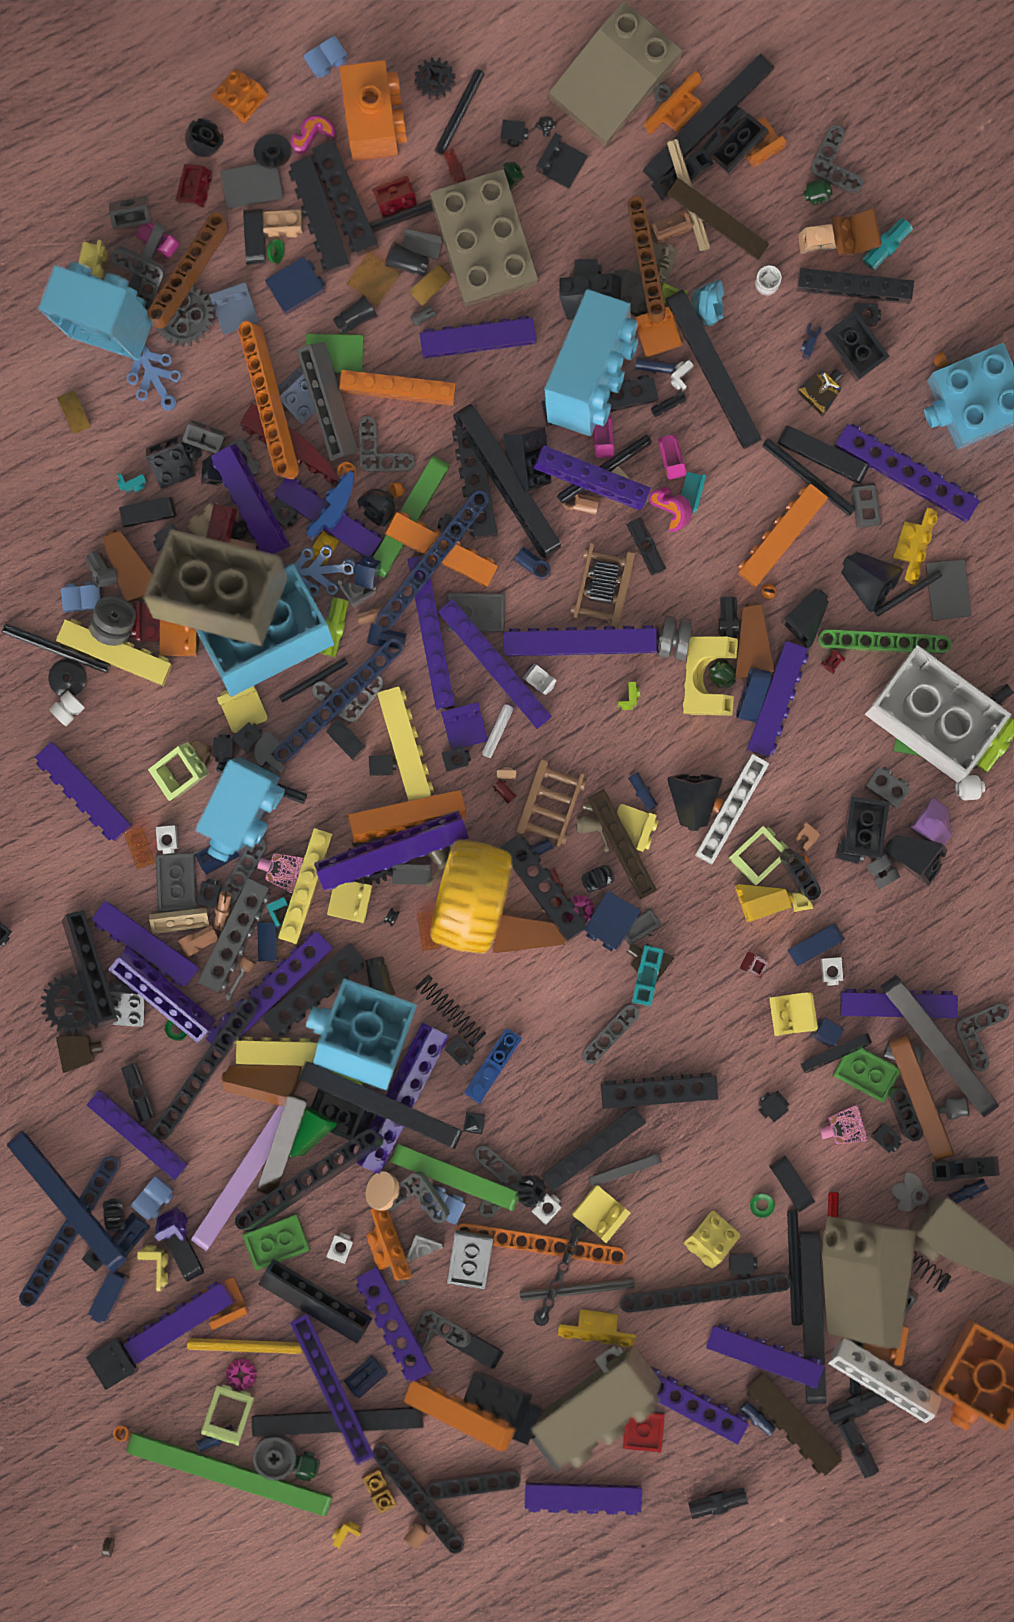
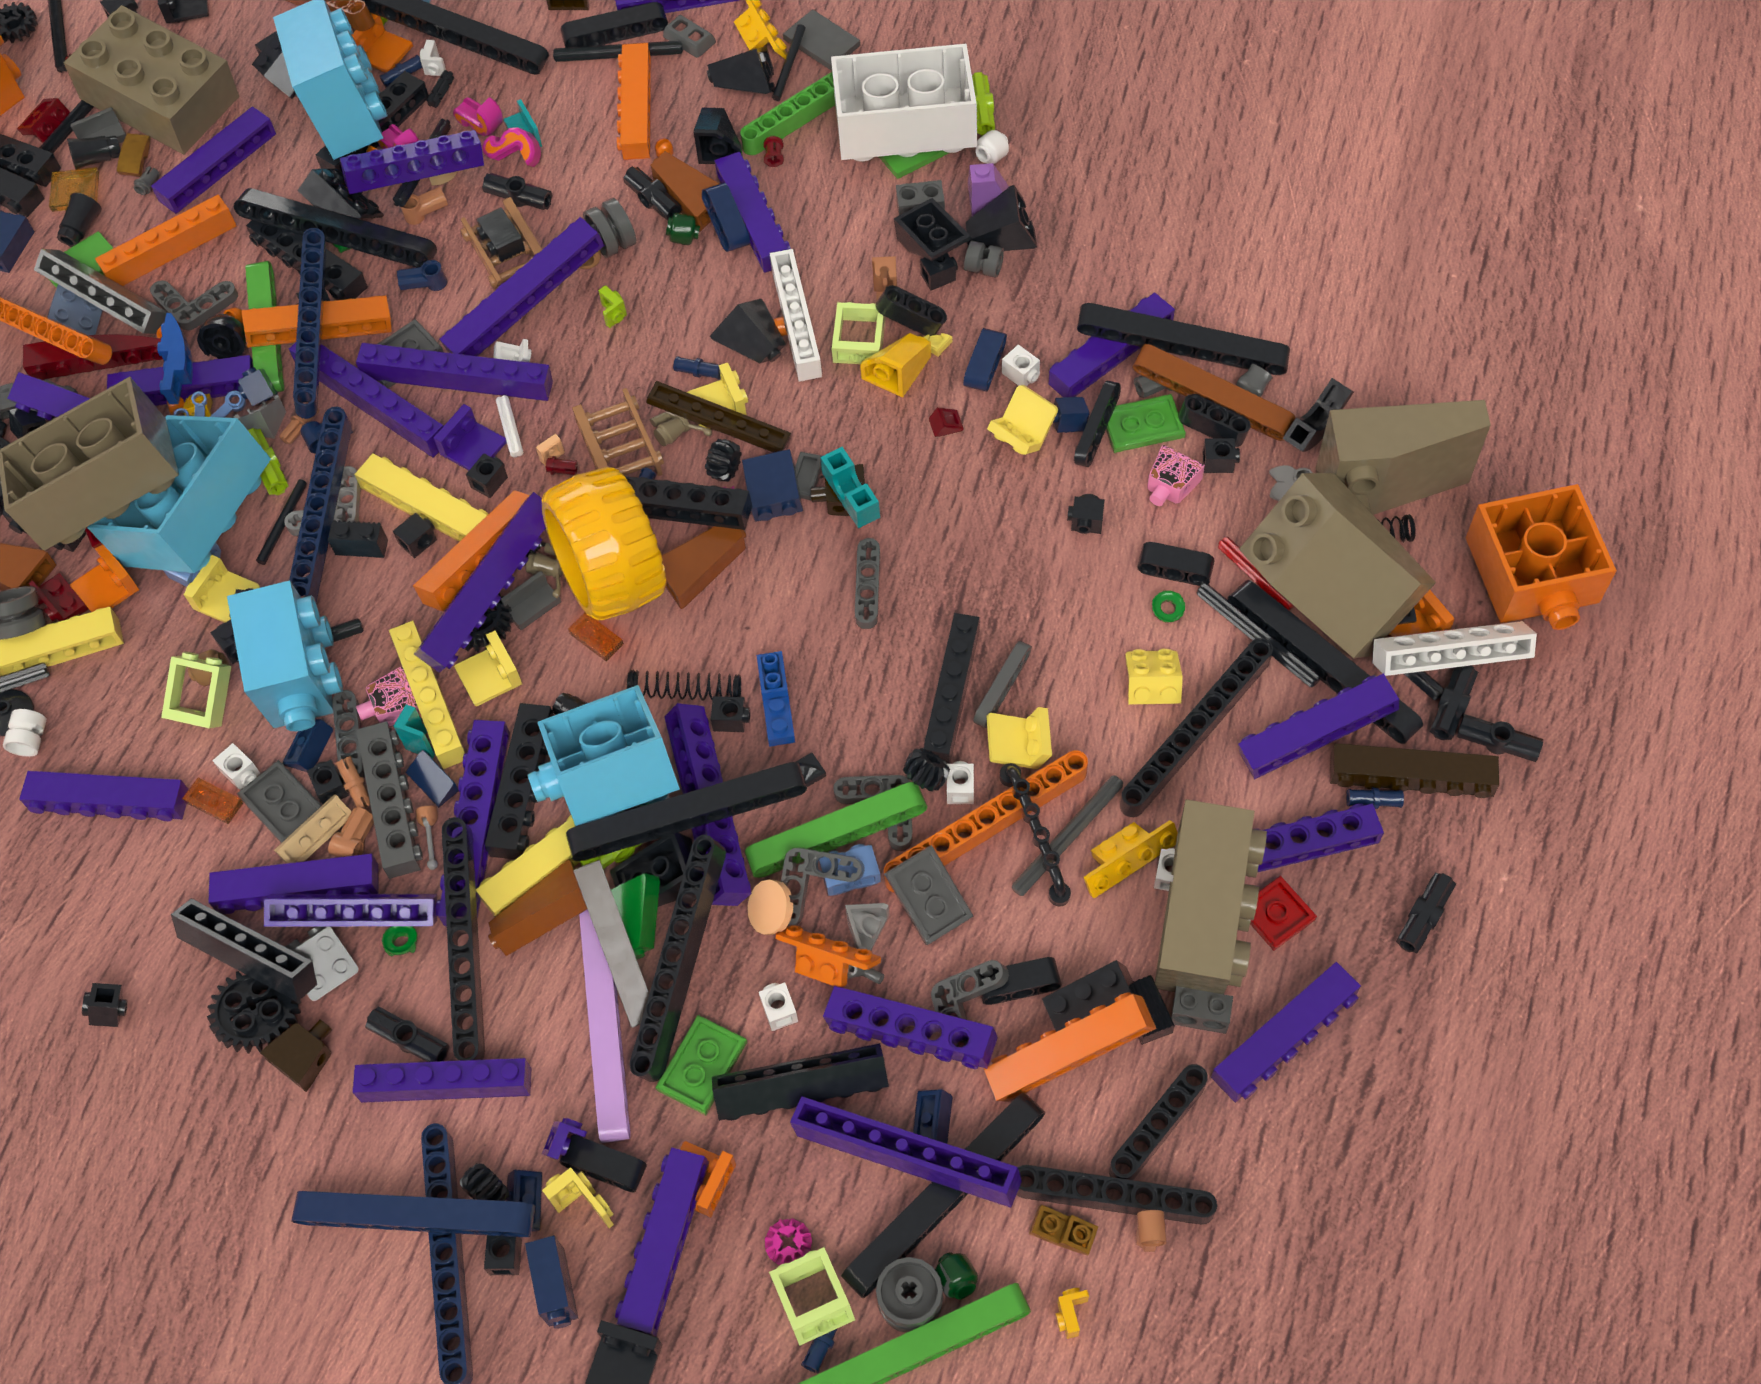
camera: 40 degrees left, 25 degrees down
(152, 1198) = (516, 1134): medium blue brick -> none
(244, 1346) = (763, 1206): yellow axle -> none
(391, 917) = (545, 653): black bush -> none
(700, 653) = (647, 219): light yellow arch -> none
(708, 1092) = (927, 635): black brick -> none
(742, 1264) = (1204, 670): black brick -> none
(972, 1034) = (1200, 316): dark grey beam -> none

